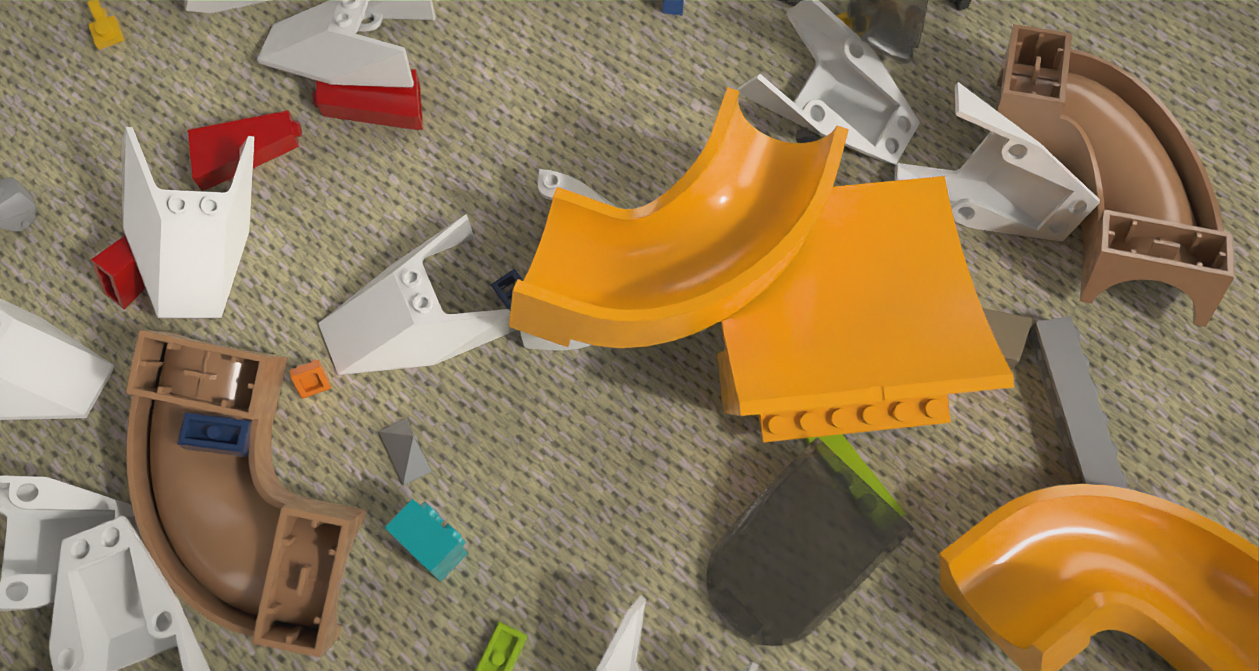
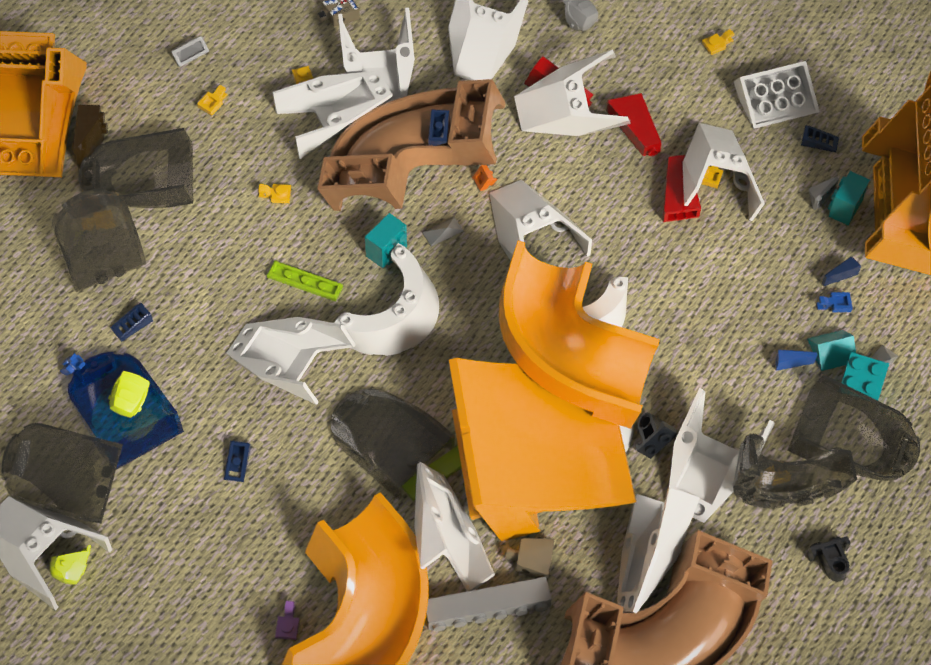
camera: 85 degrees right, 10 degrees down
(586, 508) = (406, 321): none -> white windscreen
(984, 459) = (447, 530): none -> white windscreen

